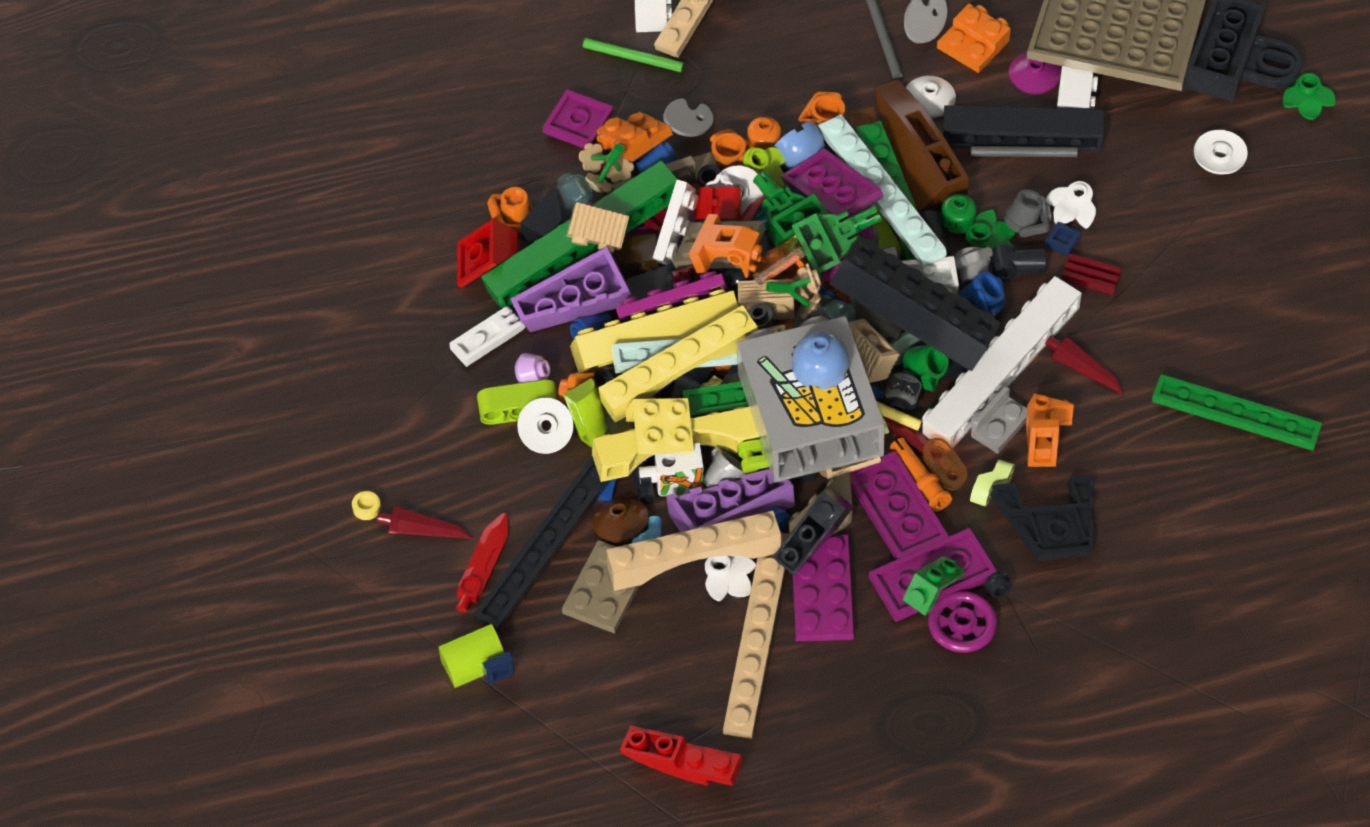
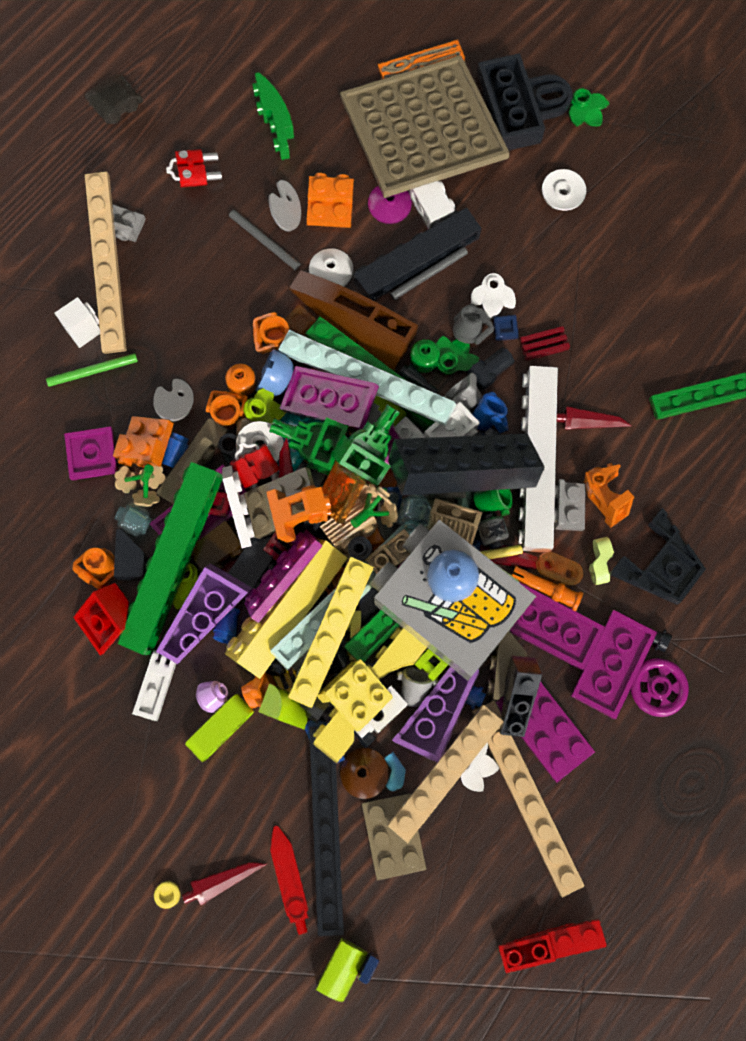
camera: 40 degrees left, 20 degrees up
(531, 428) = (256, 744): white dish -> none
(597, 227) = (184, 553): tan brick -> none
(929, 582) = (629, 676): green bracket -> none

